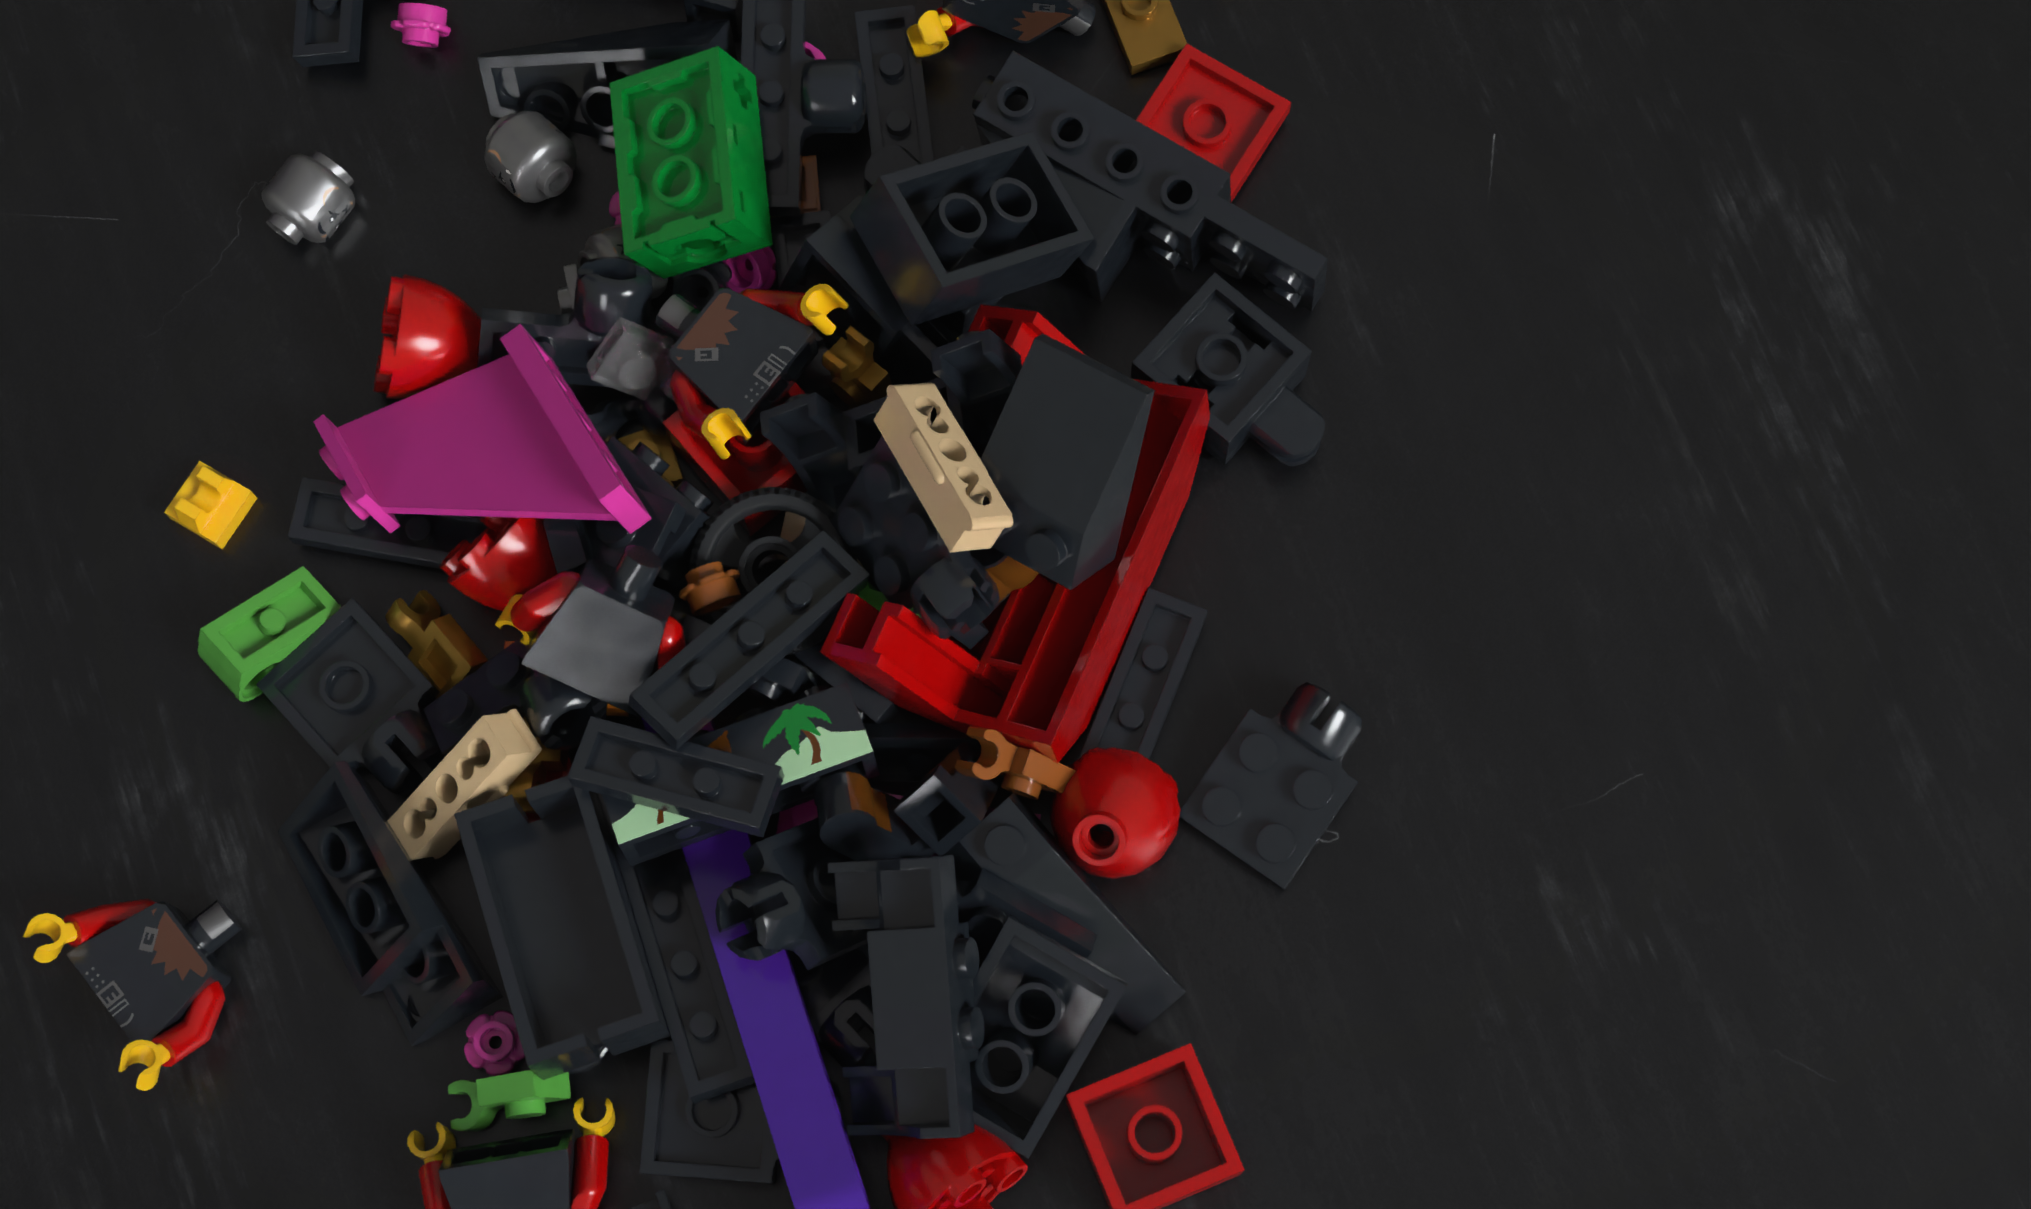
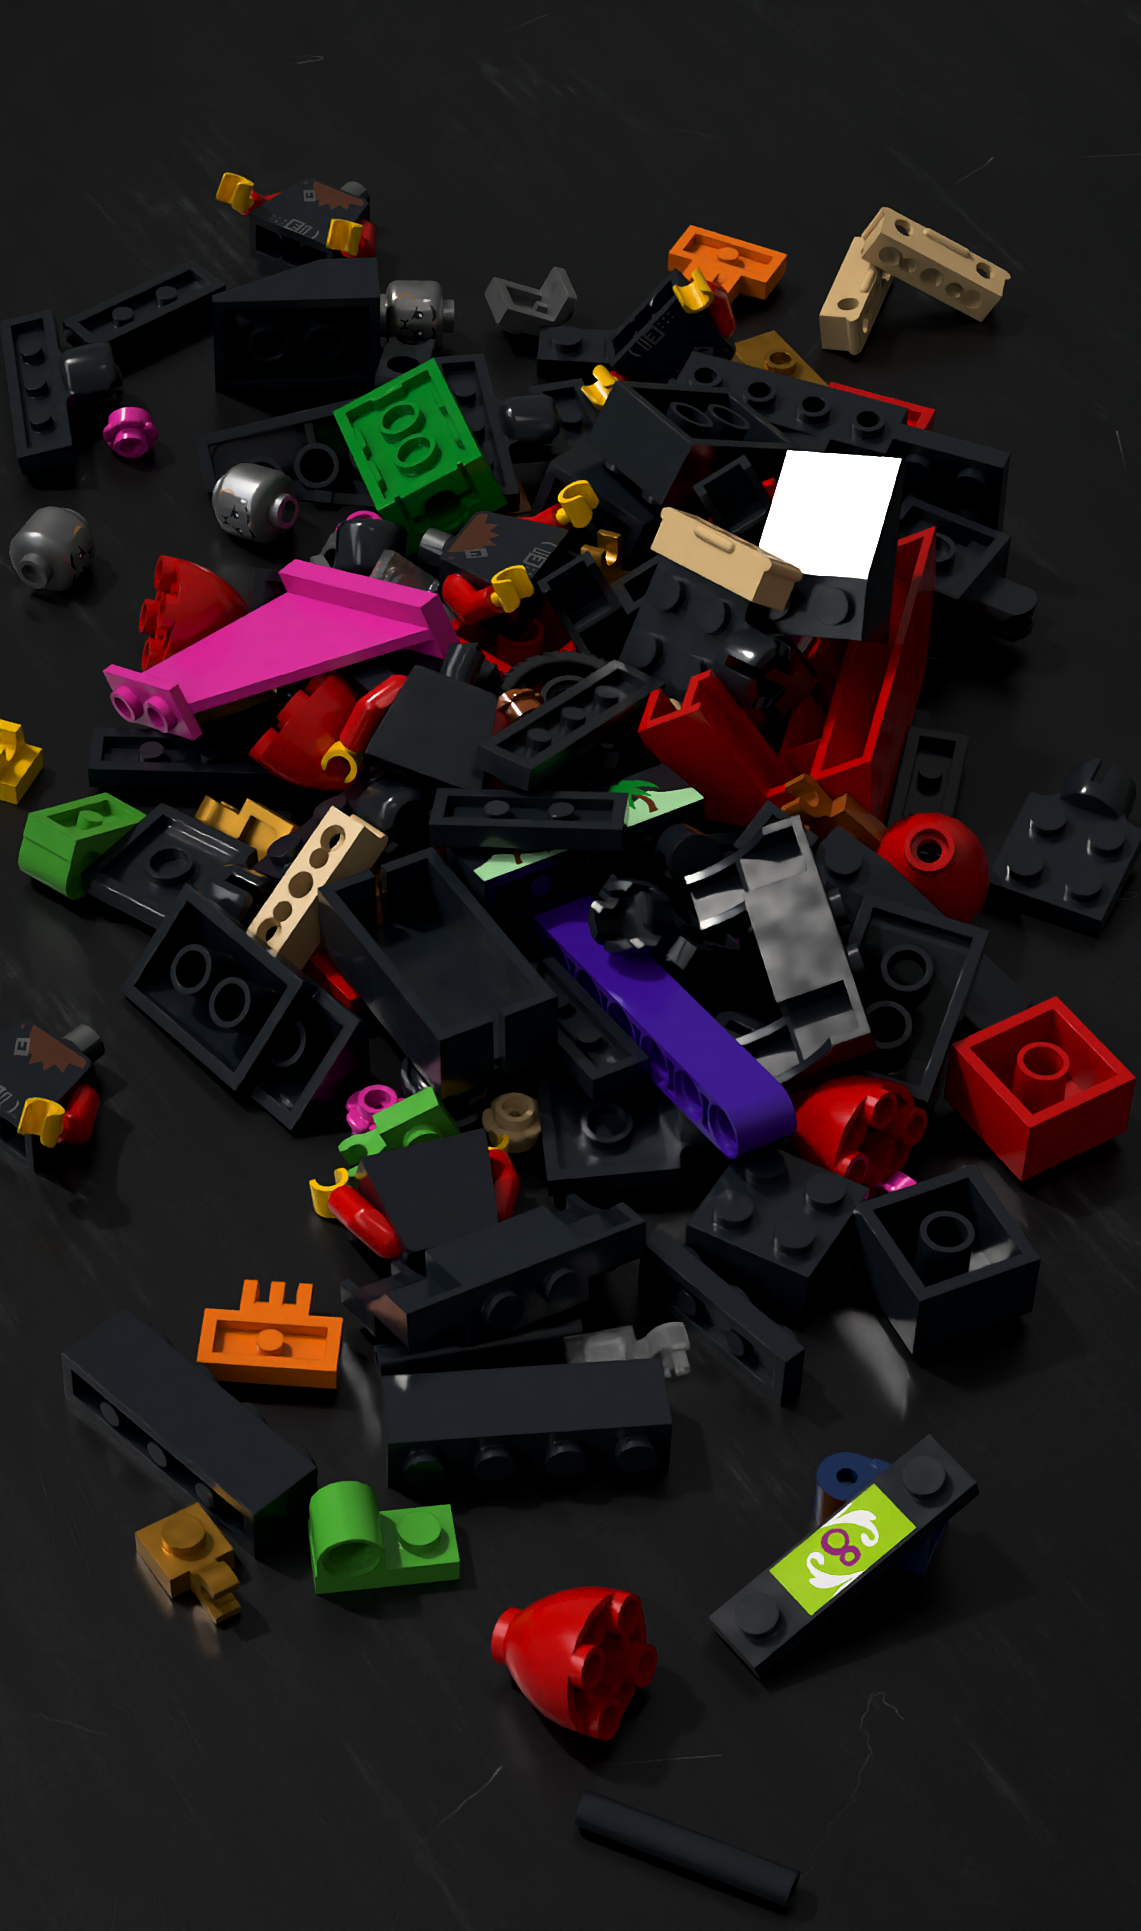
camera: 15 degrees left, 30 degrees down
(610, 1076) = (515, 1116): none -> tan plate

